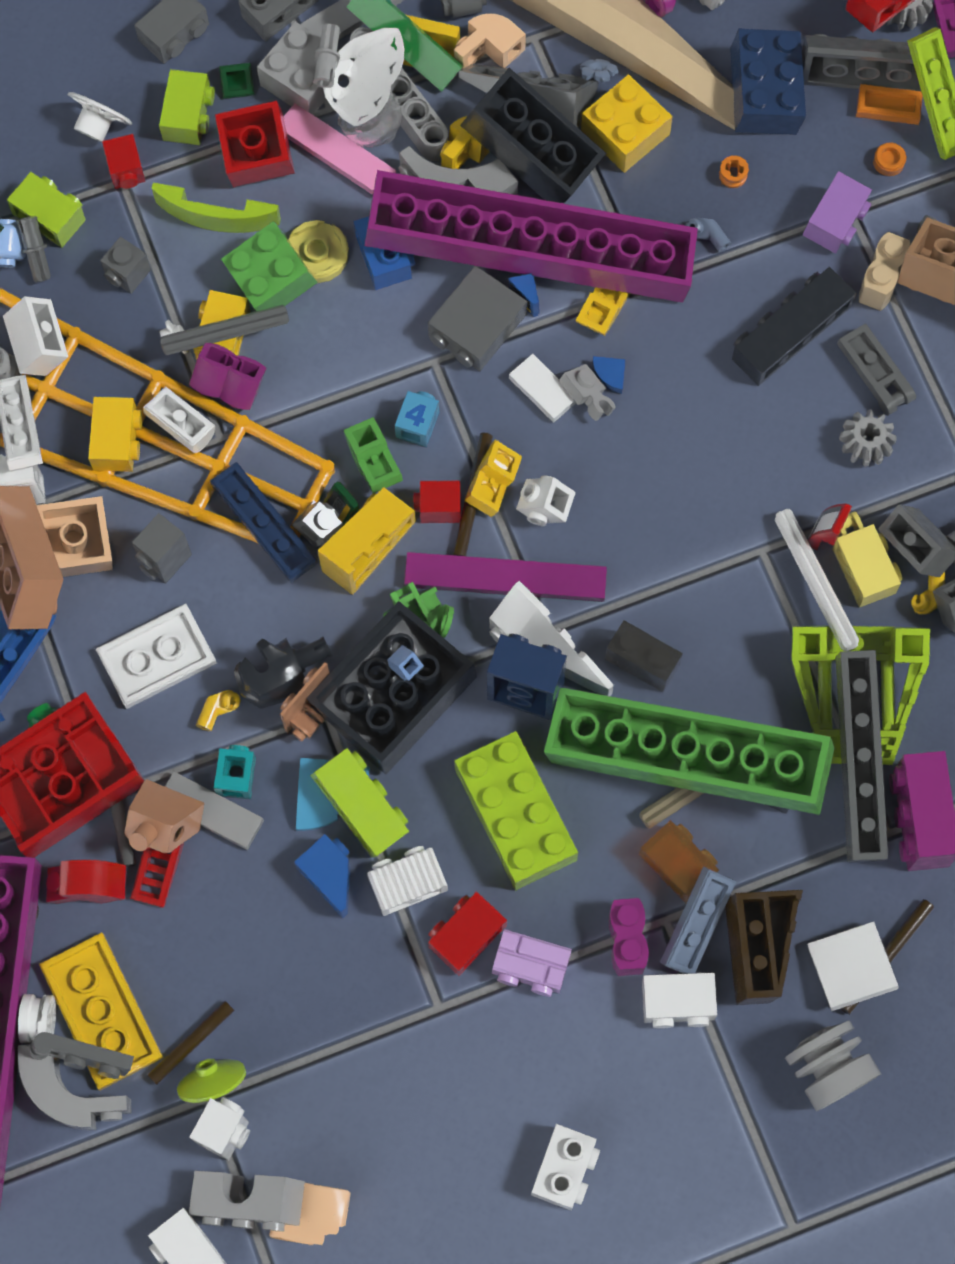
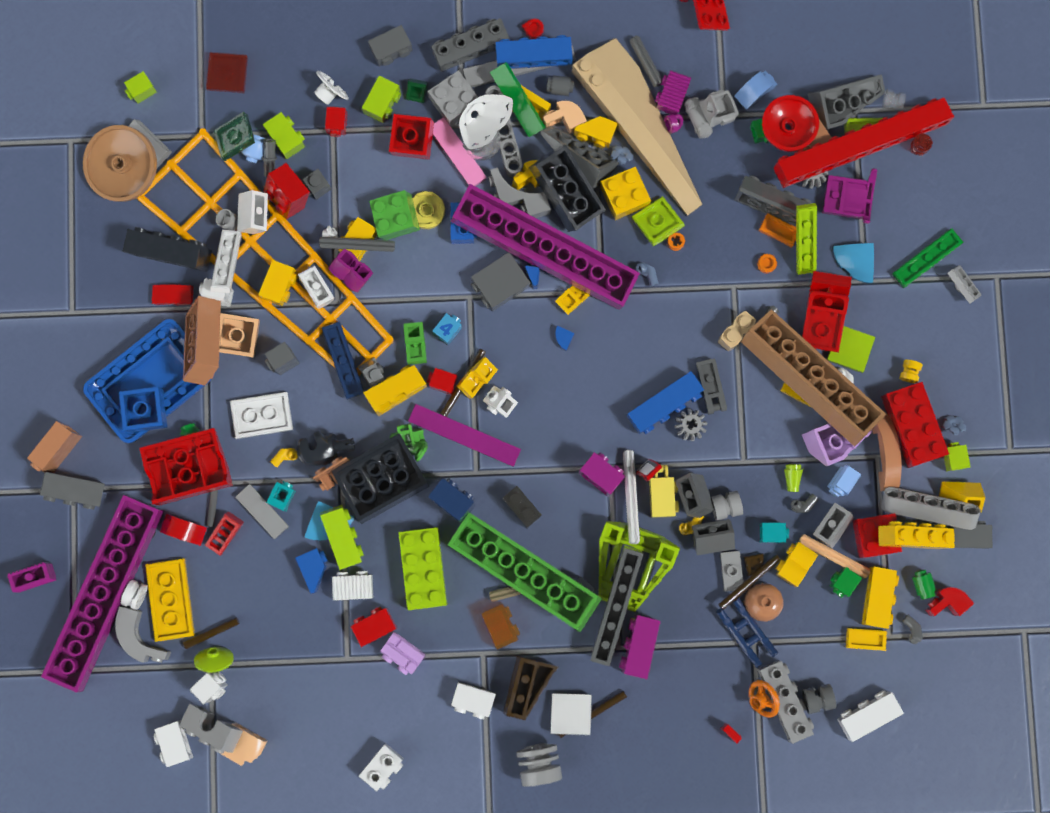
camera: 15 degrees right, 10 degrees up
(80, 286) = (286, 191): none -> red brick
(80, 1054) = (148, 624): dark grey plate -> none
(162, 818) = (232, 510): nougat torso -> none
(212, 217) = (396, 179): lime slope -> none
(327, 56) = (467, 100): light grey axle -> none
(342, 502) = (388, 364): slope -> none
(400, 658) = (388, 468): medium blue piece -> none
(526, 616) = (465, 473): white wedge -> none
(542, 388) = (523, 333): white tile -> none
(546, 48) = (598, 131): none -> yellow slope
(587, 389) = (546, 342): light grey plate -> none
(626, 928) = (457, 663): magenta brick -> none
(694, 149) = (658, 221): none -> lime tile
(698, 921) = (497, 663): sand blue tile -> none
(755, 557) = (602, 474): none -> magenta brick
(768, 81) = (714, 195): dark blue brick -> none
(793, 325) = (675, 345): black brick -> none
(813, 417) = (665, 402): none -> blue brick
(837, 212) = (723, 287): medium lavender brick -> none

